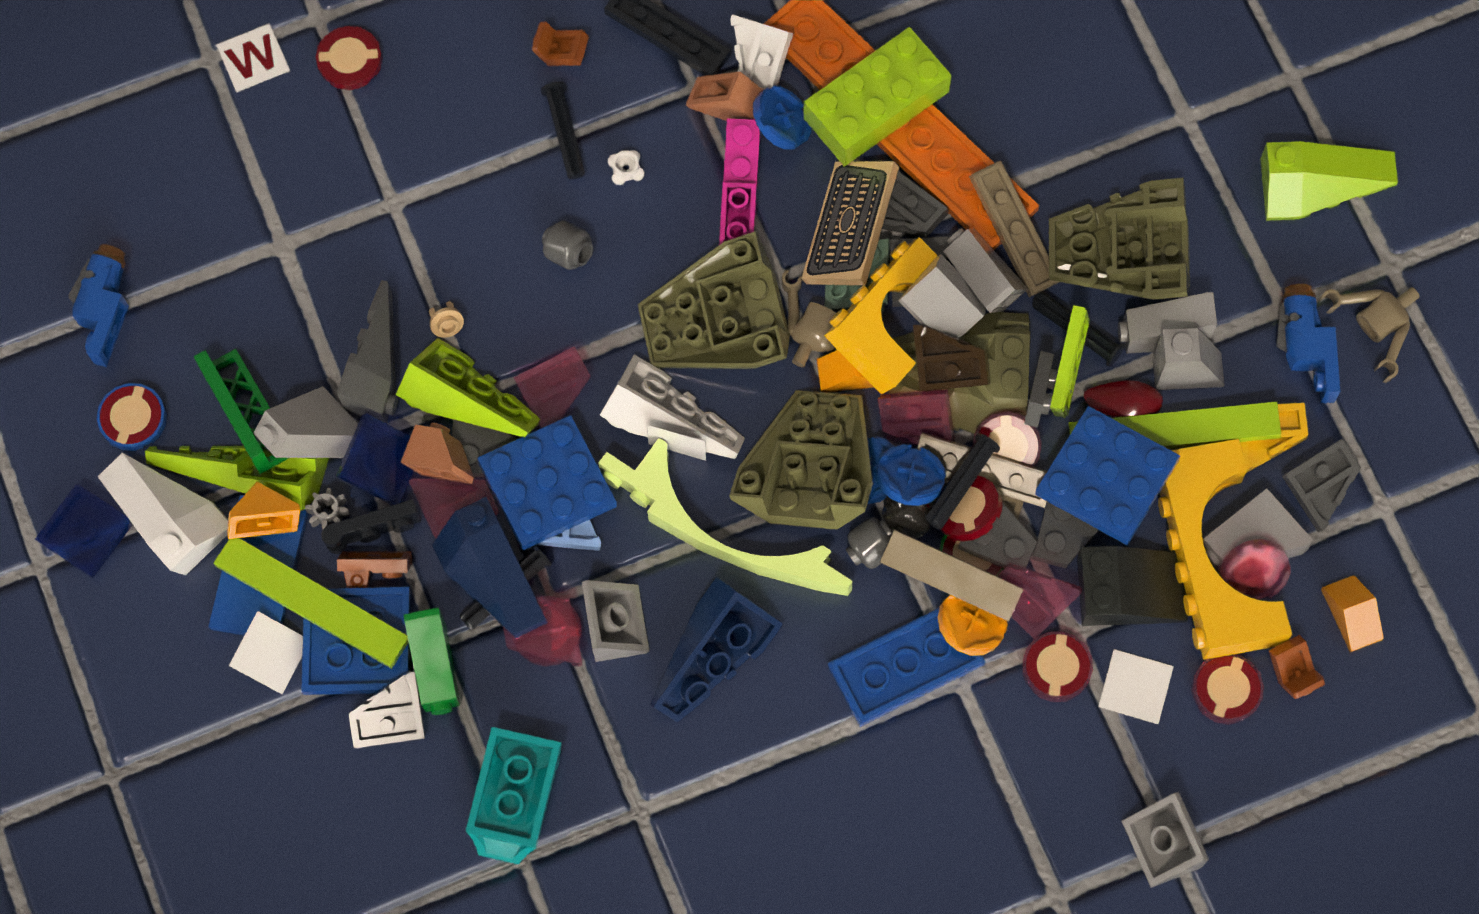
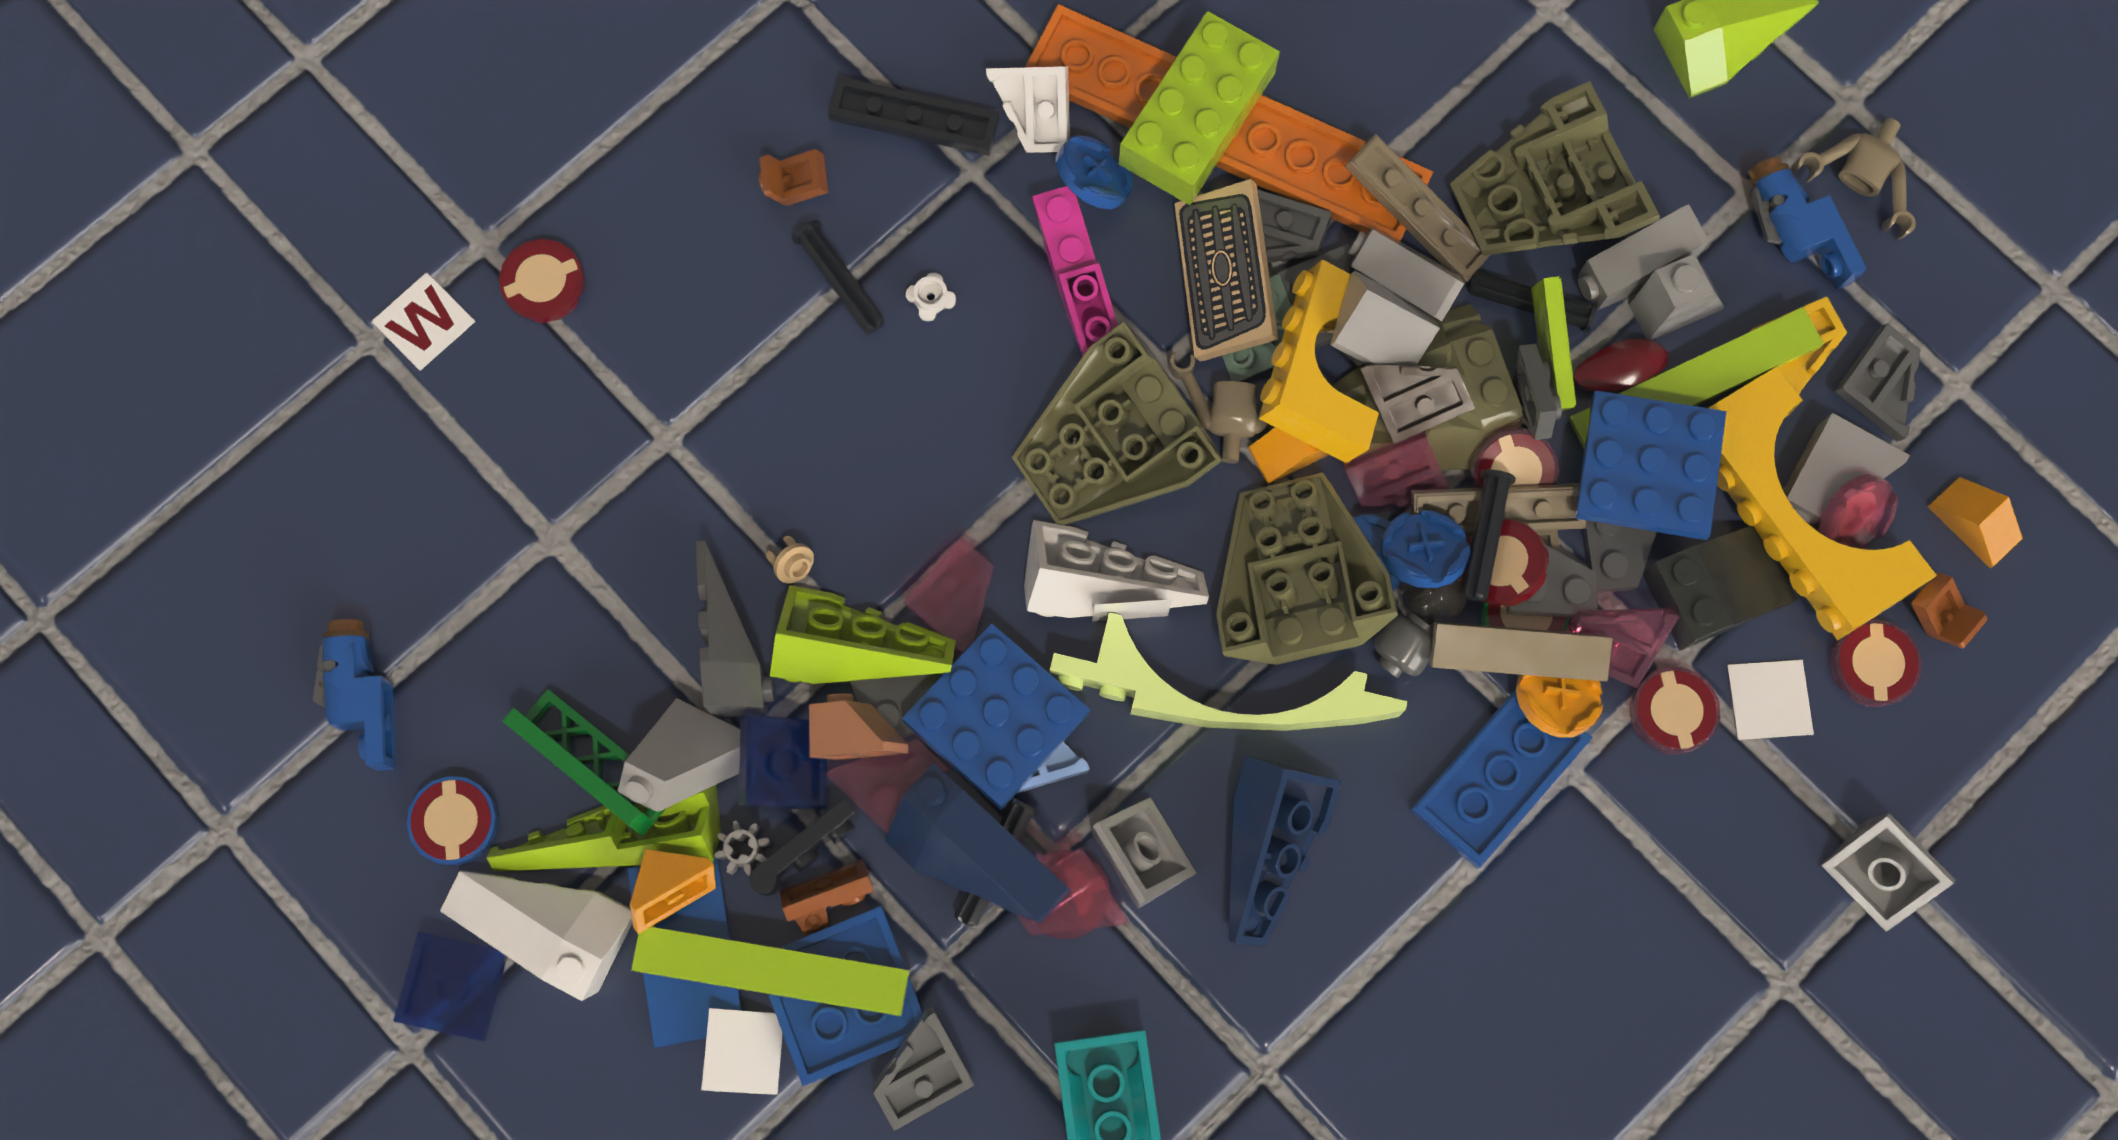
camera: 25 degrees left, 5 degrees up
(432, 661) = (949, 990): slope -> none
(567, 245) = (901, 416): dark grey head -> none
(724, 96) = (1015, 170): nougat slope -> none

